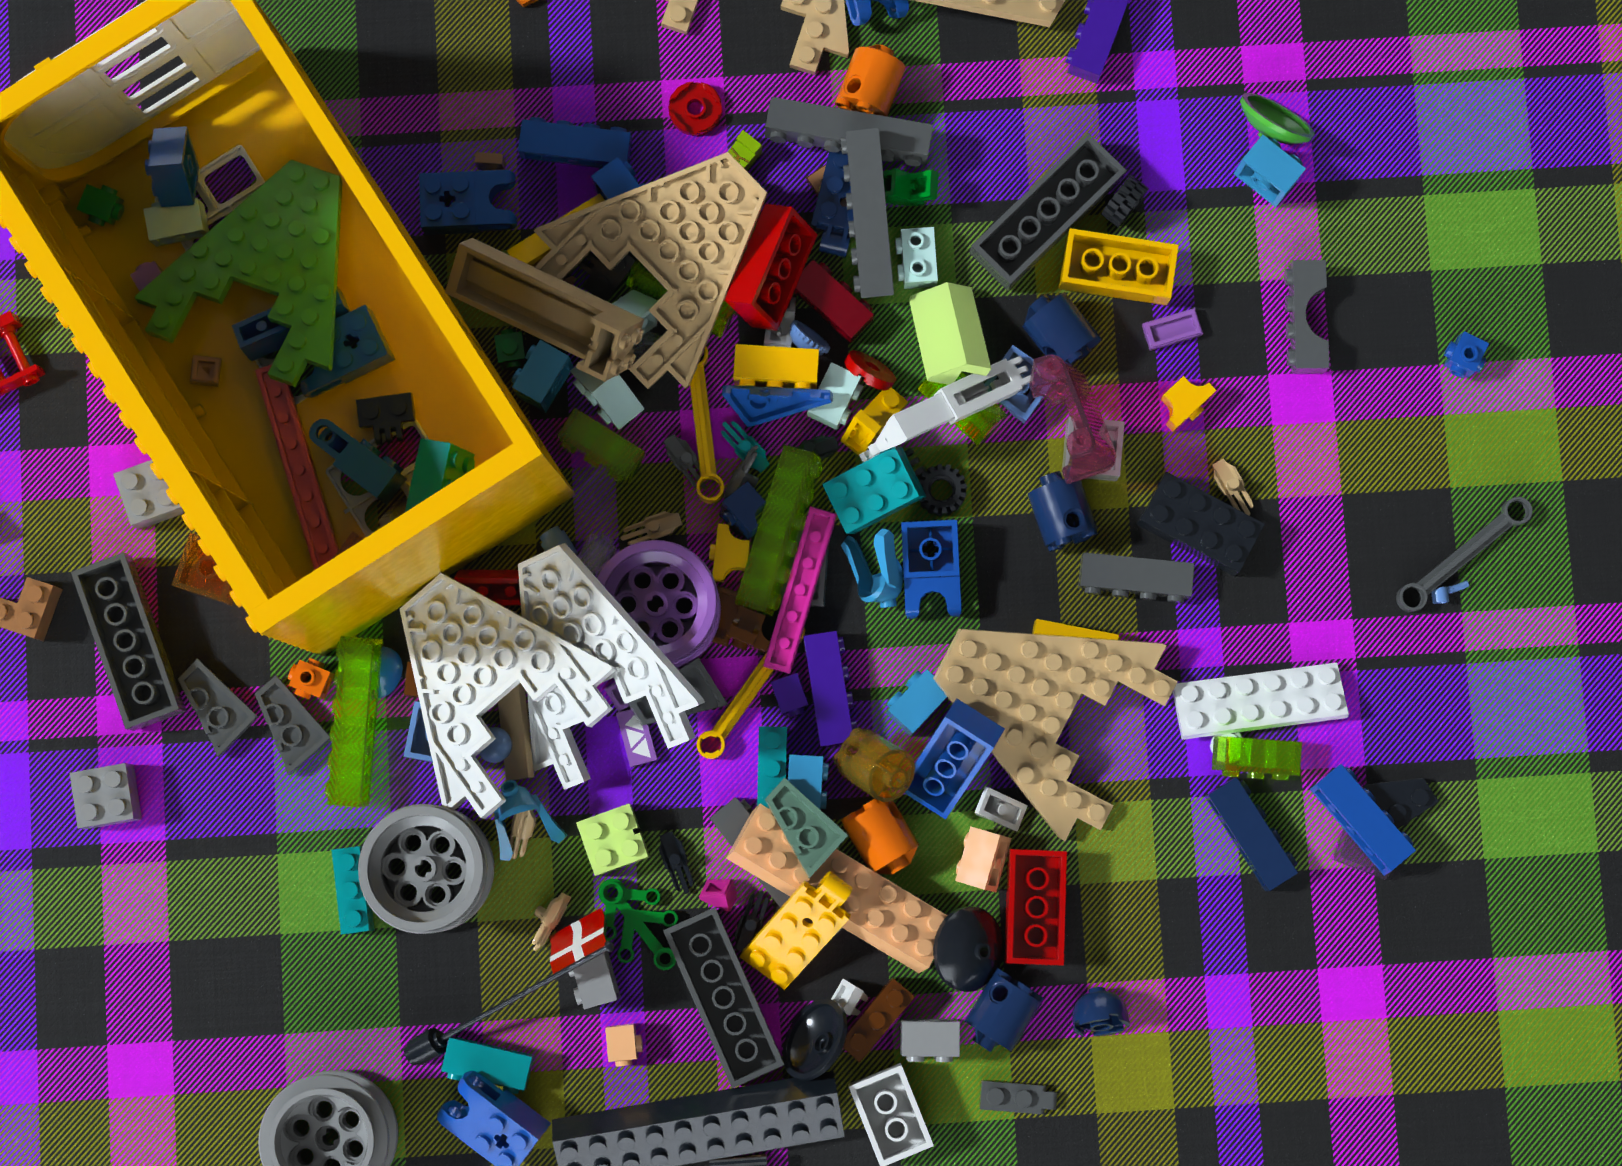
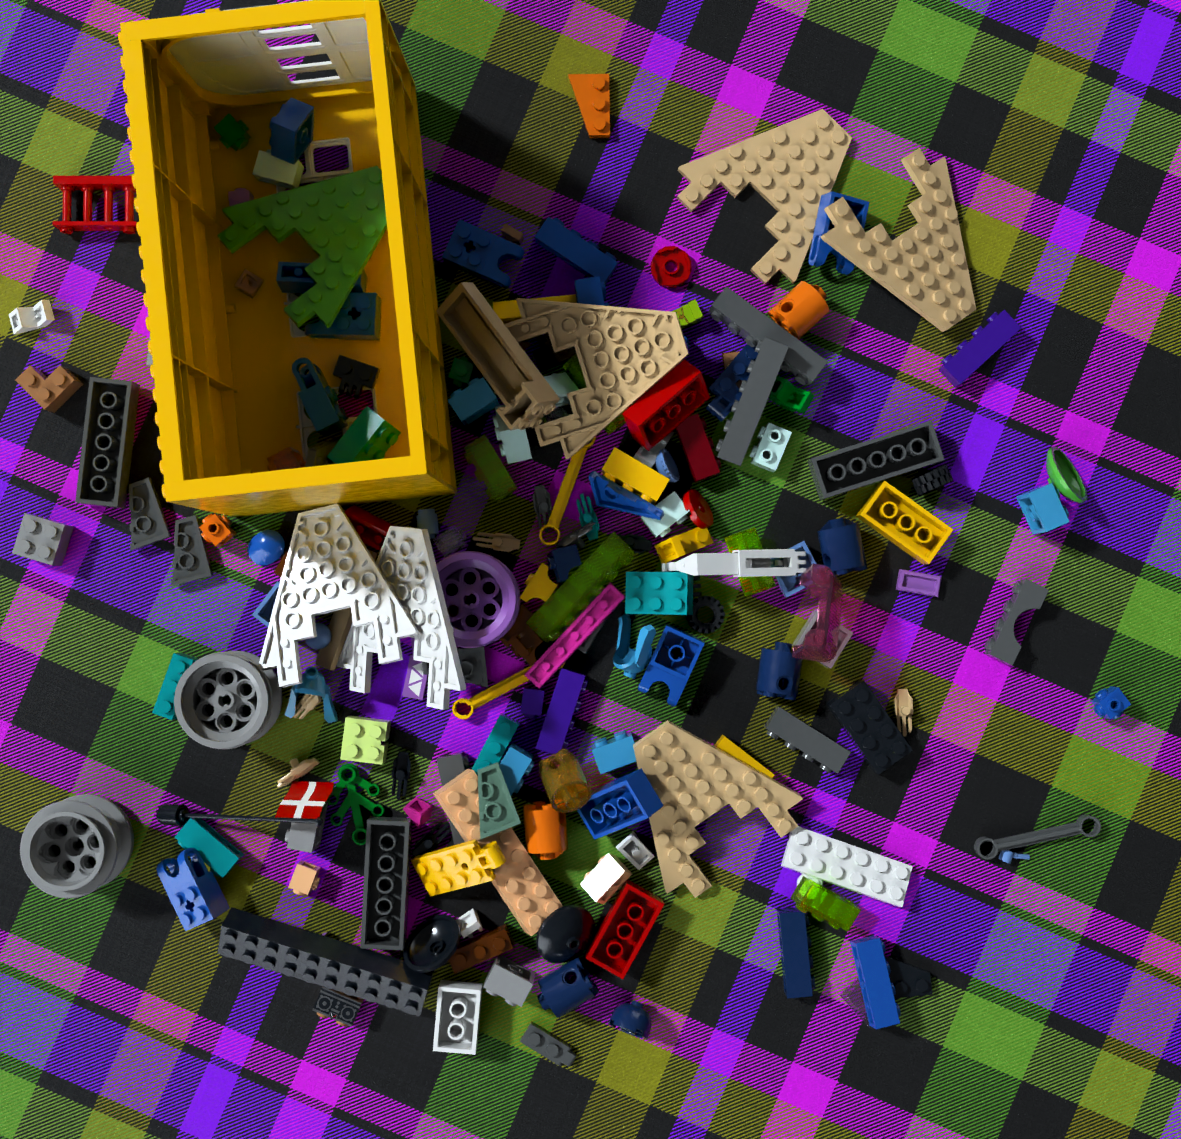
camera: 25 degrees right, 5 degrees up
(298, 468) = (277, 388): coral tile -> none
(354, 721) = (232, 573): clear neon green brick -> none
(949, 332) = (765, 512): yellowish green slope -> none
(1185, 401) = (901, 638): yellow brick -> none

